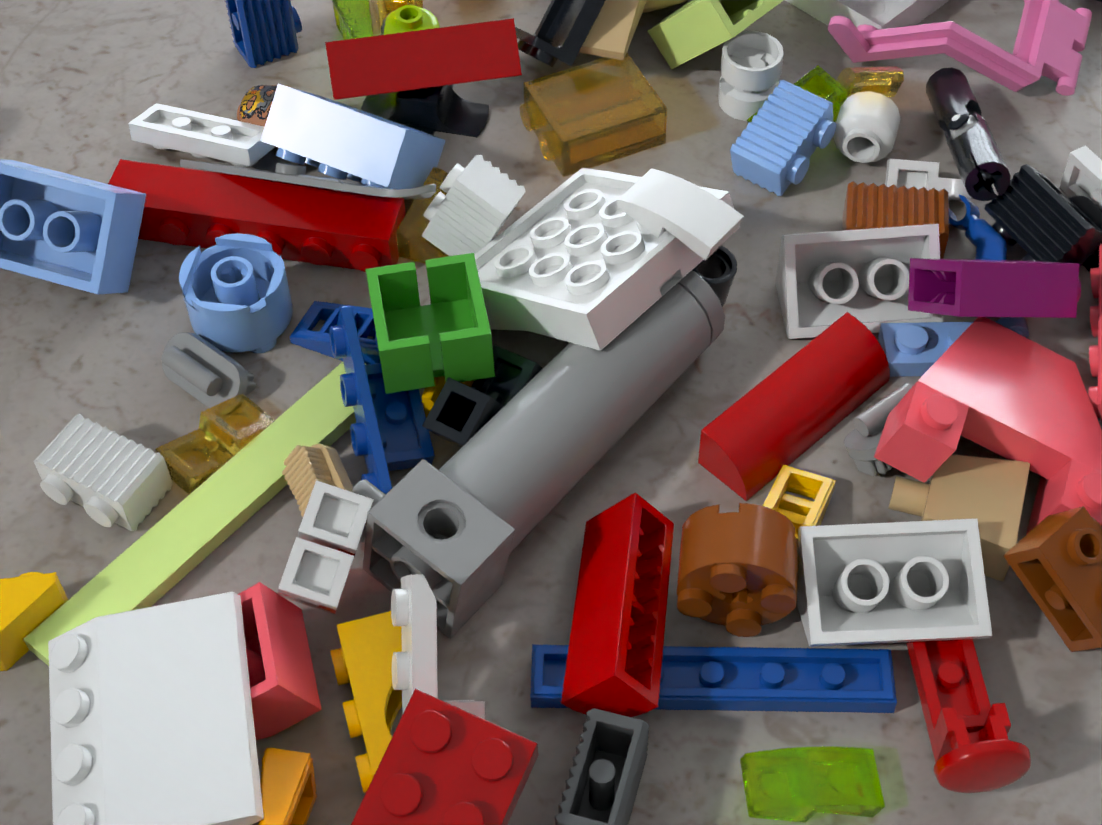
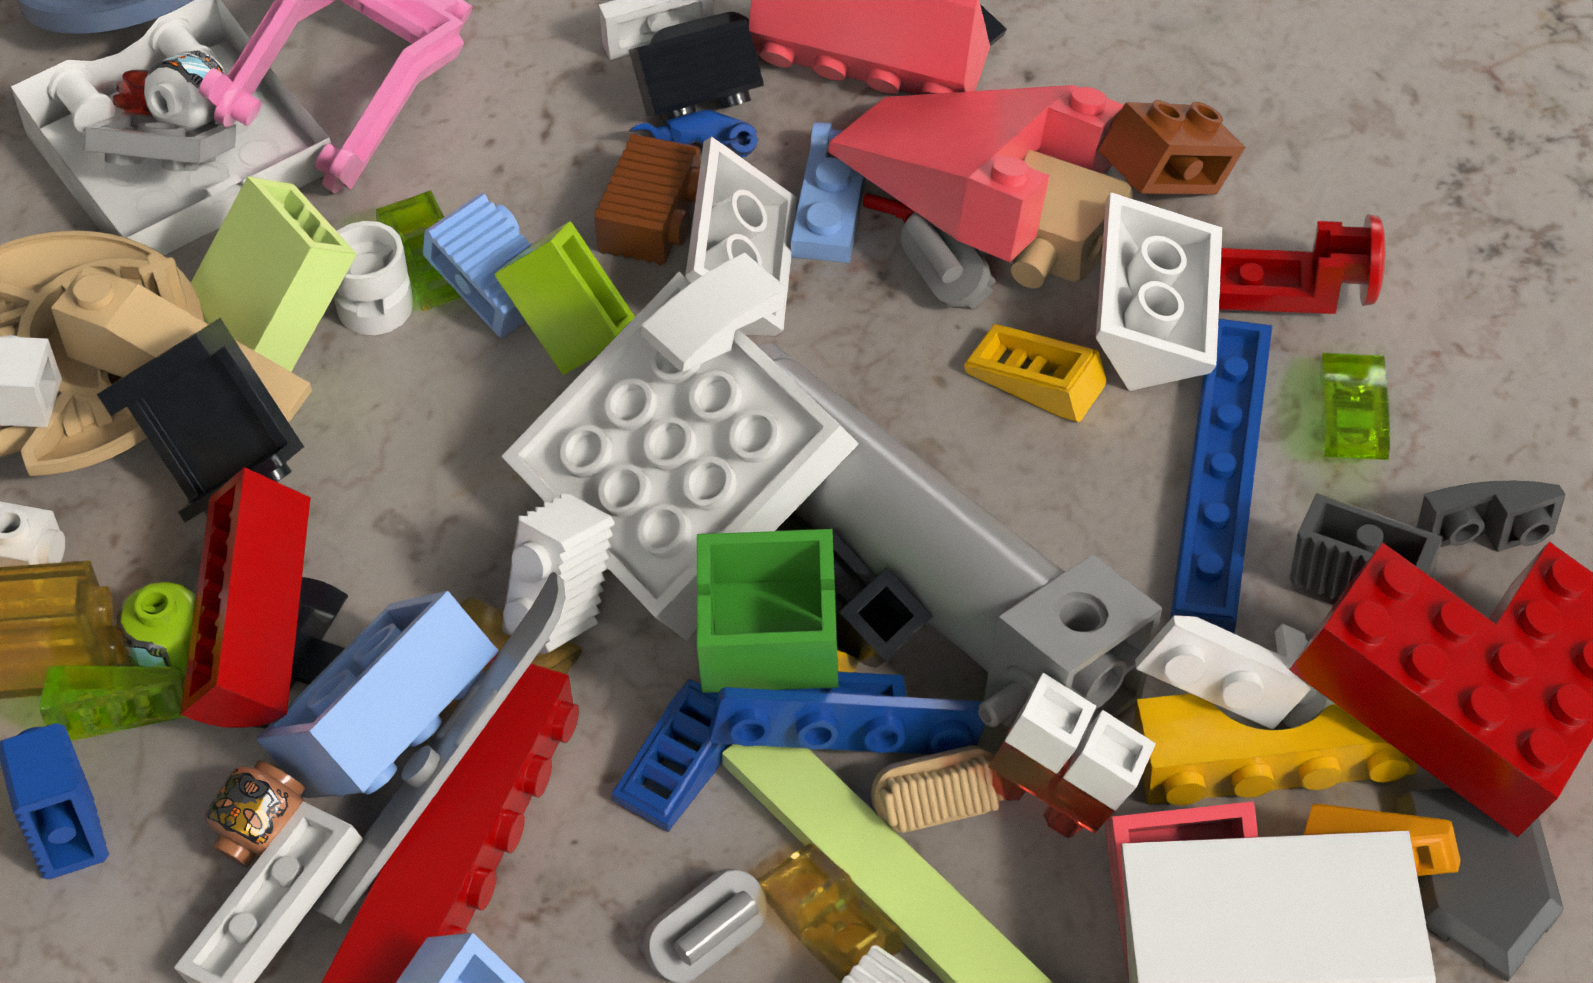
camera: 80 degrees left, 0 degrees up
(237, 293) = (606, 860): light blue brick -> none
(593, 114) = (373, 450): clear yellow brick -> none
(620, 611) = (1150, 519): red brick -> none
(738, 568) = (1126, 403): dark orange brick -> none
(759, 176) = (565, 297): none -> lime brick
(794, 407) = (890, 339): red brick -> none
(867, 127) = (498, 175): white head -> none
(876, 79) = (426, 161): clear yellow slope -> none
(921, 175) = (593, 160): white plate -> none
(967, 135) = (505, 102): black piece -> none
(994, 288) = (803, 120): magenta brick -> none

